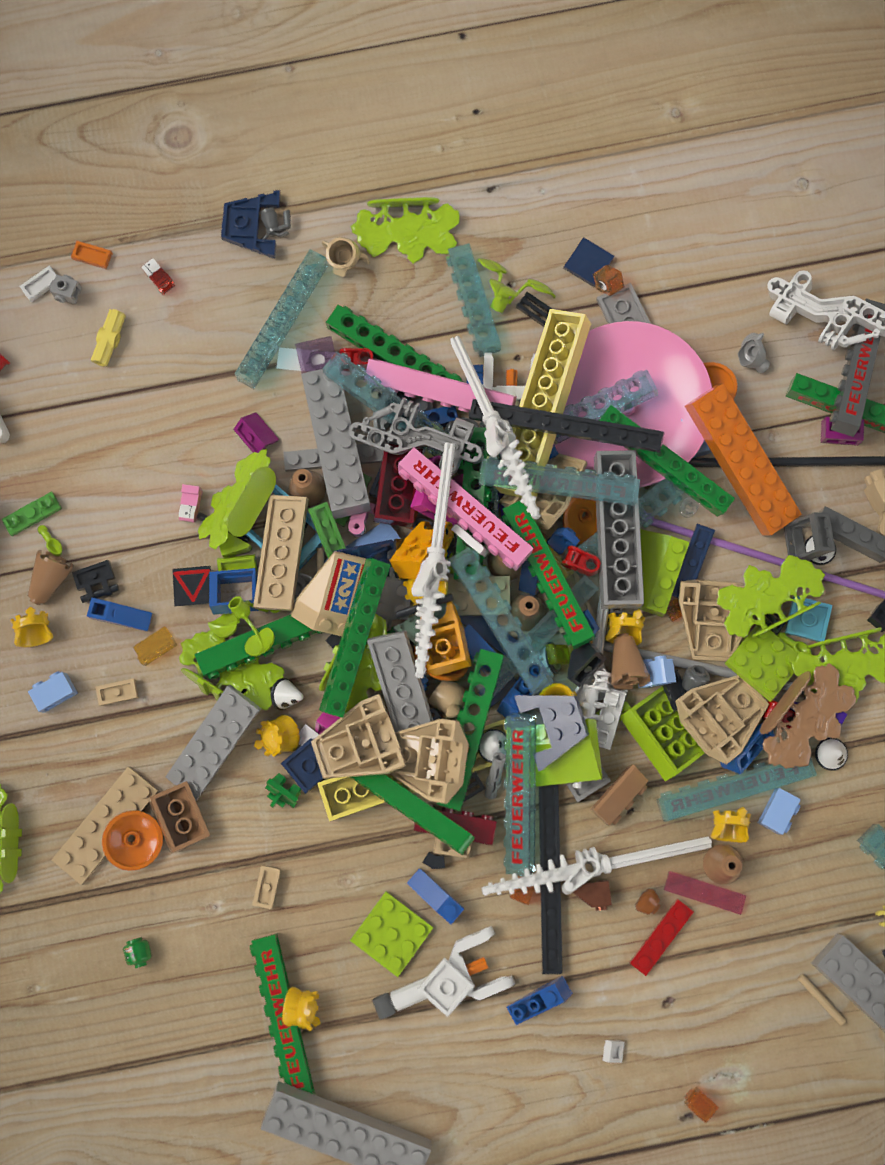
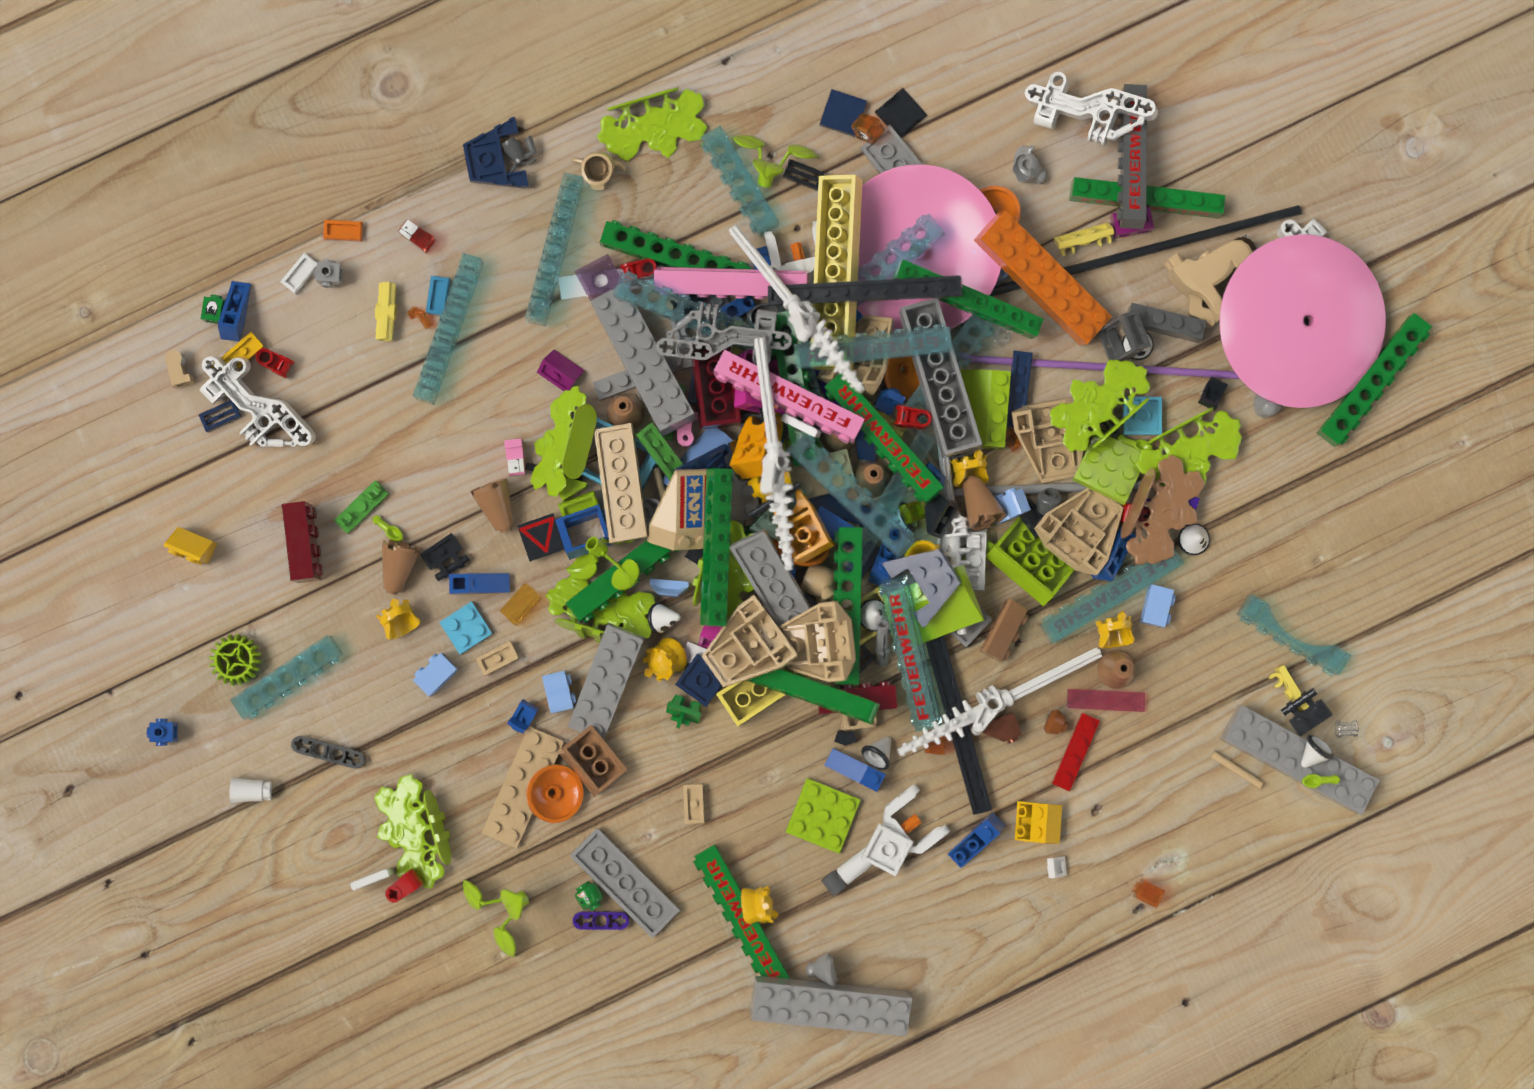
camera: 20 degrees left, 5 degrees up
(57, 942) = (513, 903): none -> lime plant
(95, 654) = (466, 628): none -> medium azure plate
(124, 755) = (523, 716): none -> blue bracket
(141, 350) = (422, 316): none -> clear orange arm
(155, 989) = (586, 915): none -> dark purple beam
(157, 543) = (495, 504): none -> medium nougat cone
(161, 336) = (437, 295): none -> dark azure tile
(161, 368) = (448, 328): none -> clear light blue brick
(166, 740) = (558, 691): none -> light blue brick
(177, 949) = (625, 882): none -> light grey plate
(302, 667) = (669, 587): none -> light blue slope
(350, 1093) = (823, 969): none -> light grey hair
(463, 885) = (878, 753): none -> white hat
(606, 1000) = (1038, 822): none -> yellow slope
(644, 275) = (901, 113): none -> black piece
(792, 433) = (1084, 237): none -> light yellow plate

